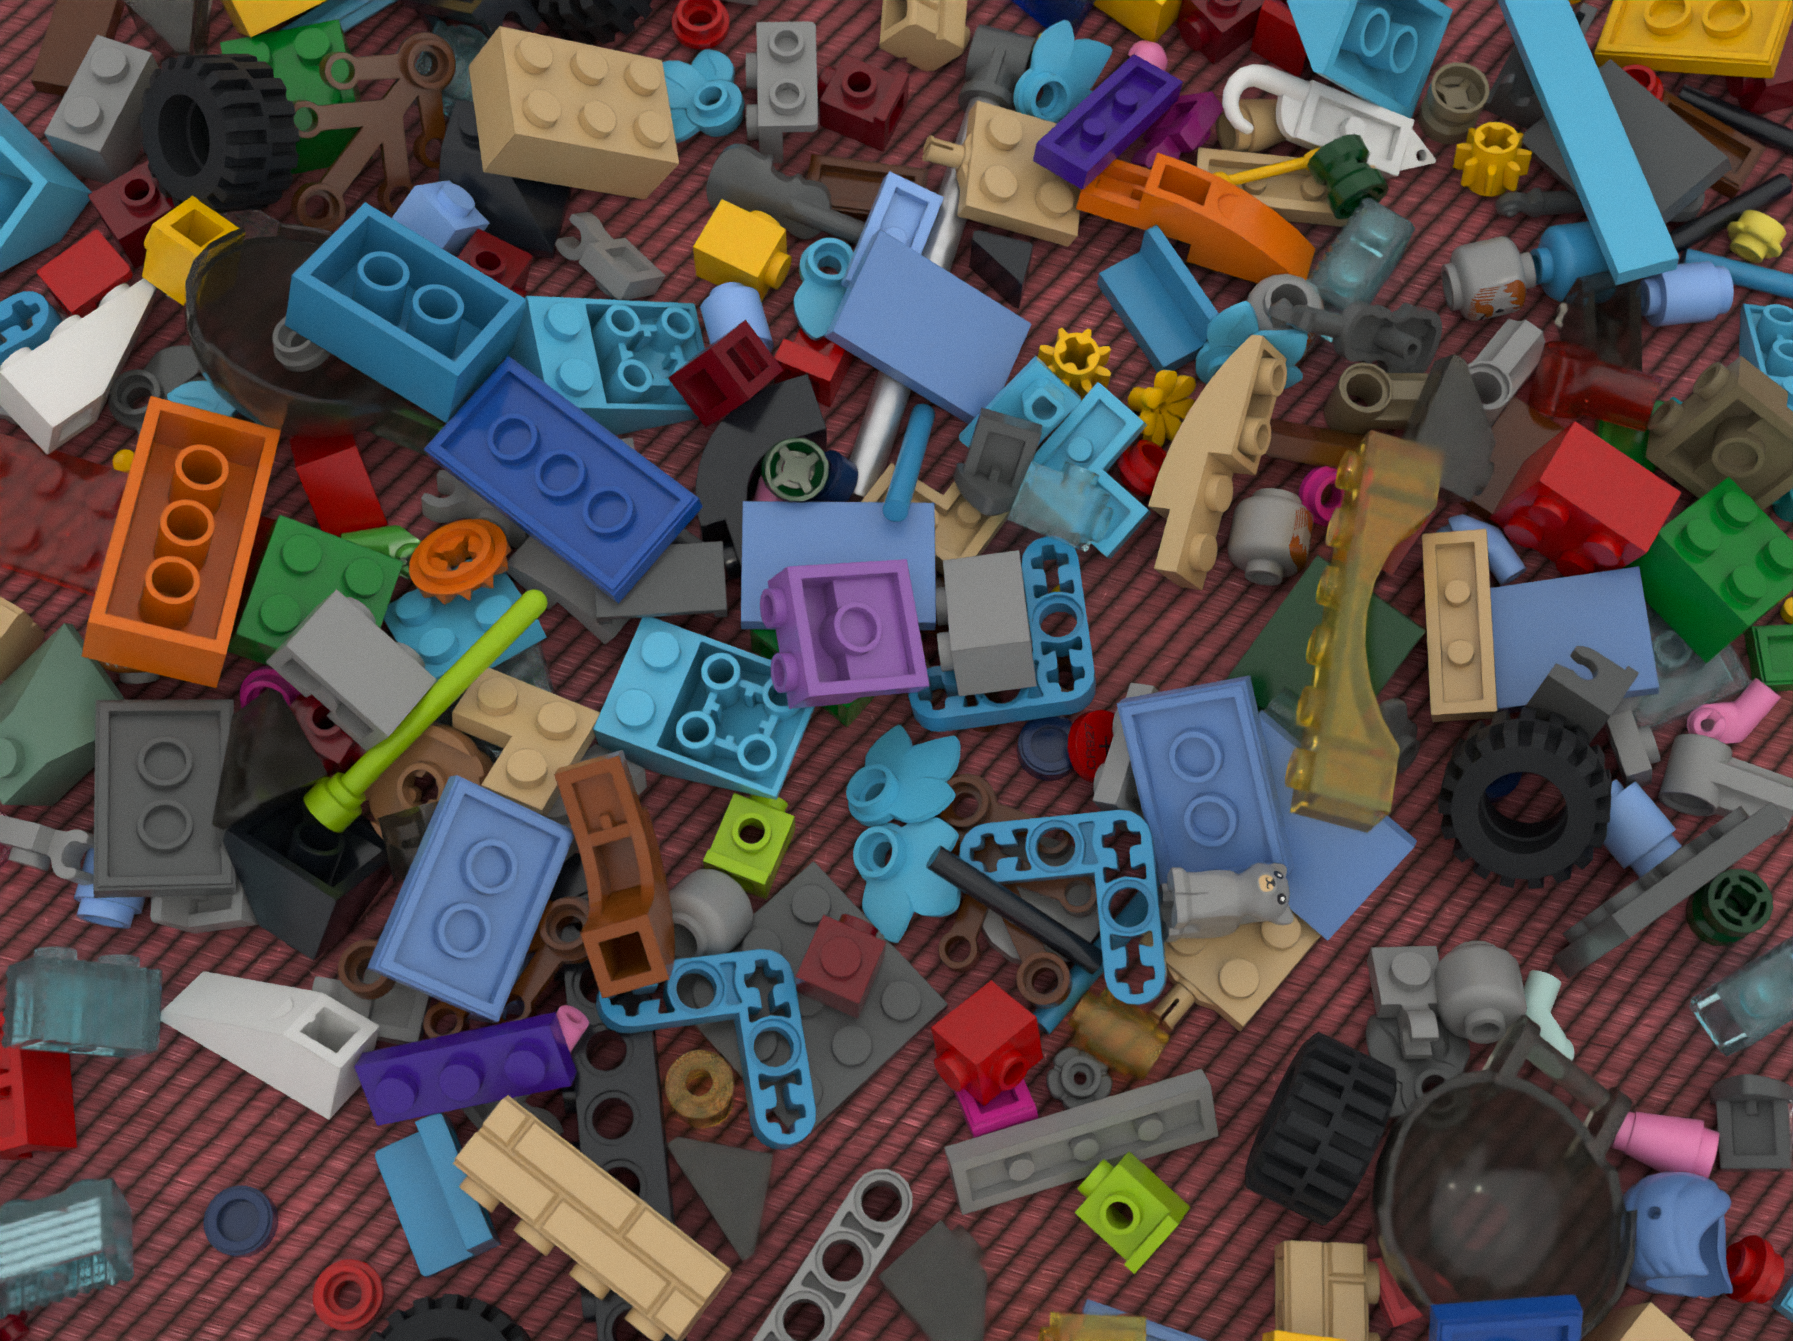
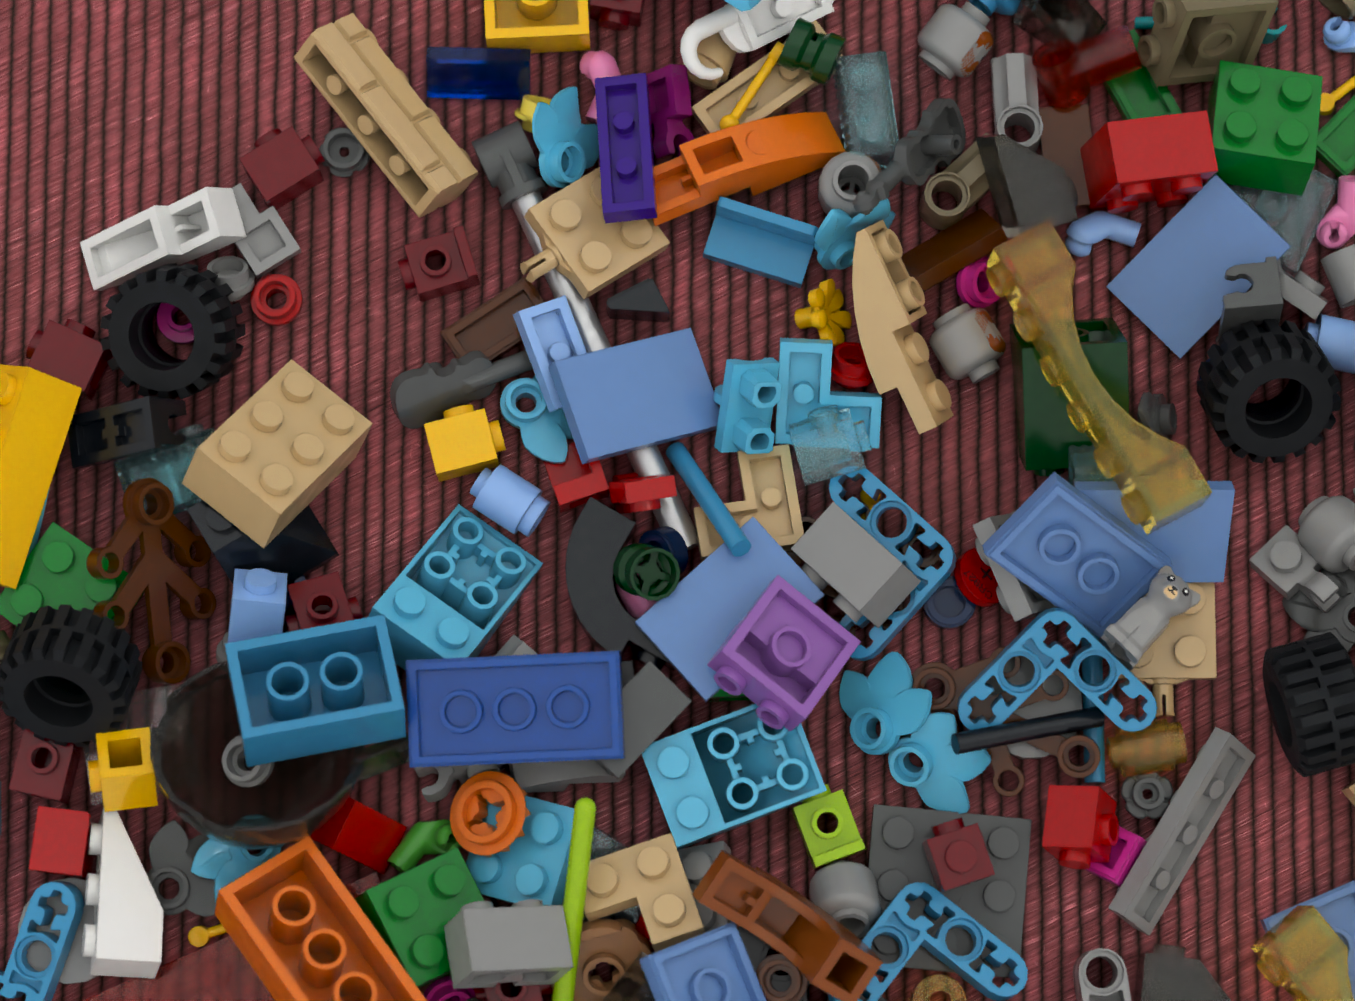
camera: 40 degrees left, 10 degrees up
(614, 263) = (385, 525): light grey plate -> none
(703, 96) = (318, 351): medium azure plate -> none
(725, 374) = (543, 545): dark red brick -> none
(785, 84) = (386, 303): light grey bracket -> none
(854, 405) = (640, 492): none -> red plate
(997, 461) = (766, 454): dark grey tile -> none
(1077, 361) = (739, 323): yellow gear -> none
(1154, 1208) = (1241, 831): lime brick -> none
(1459, 625) = (1136, 305): tan plate -> none

